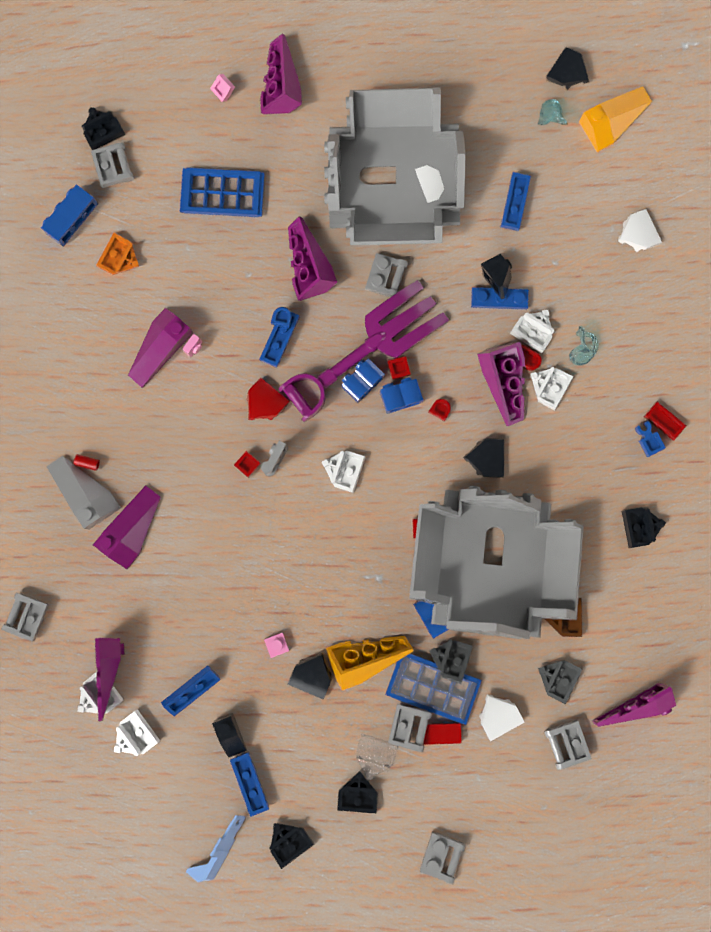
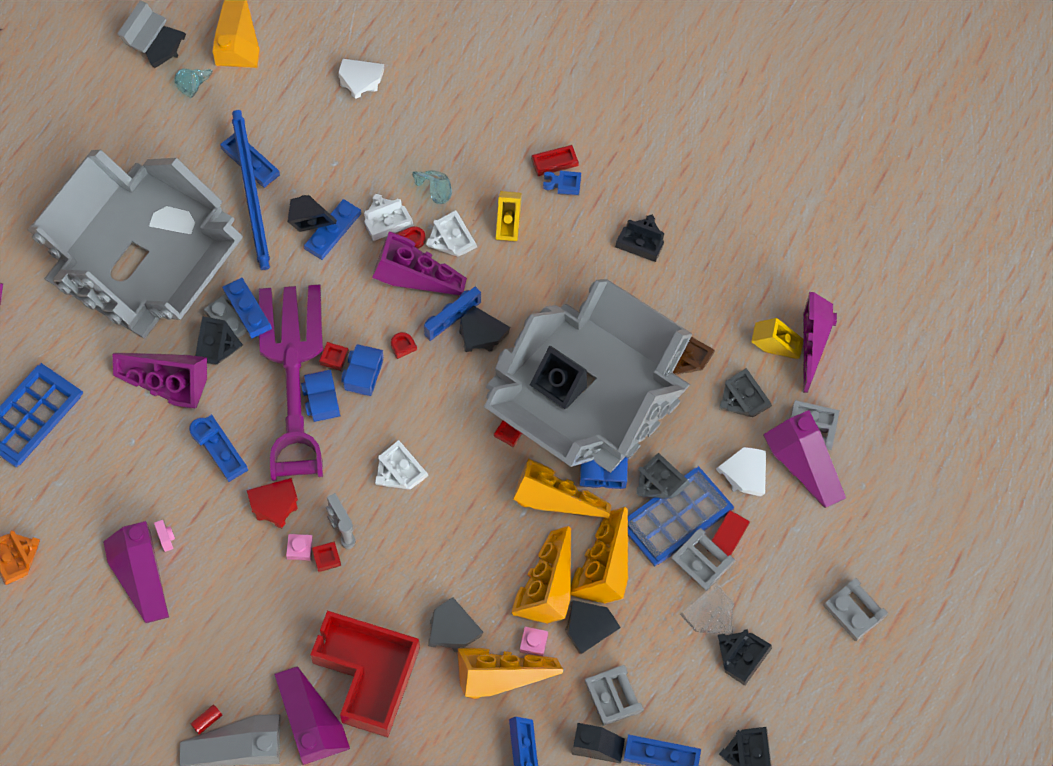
camera: 55 degrees left, 20 degrees down
(192, 551) = (378, 662): none -> red piece
(237, 635) = (491, 674): none -> light orange wedge
(243, 441) = (299, 547): none -> bright pink plate
(251, 583) = (452, 627): none -> dark grey slope
(266, 720) = (606, 697): none -> light grey plate
(321, 630) = (548, 588): none -> light orange wedge
(356, 279) = (216, 340): none -> black slope
(392, 283) = (247, 308): none -> blue plate
(392, 587) = (544, 491): none -> light orange wedge
(479, 541) = (559, 378): none -> black slope
(487, 428) = (451, 313): none -> blue plate
(490, 219) = (250, 190): none -> blue piece
(539, 752) = (804, 453): none -> magenta wedge
(570, 47) = (141, 27): none -> light grey panel
(594, 417) = (508, 215): none -> yellow slope
(621, 678) = (777, 338): none -> yellow slope

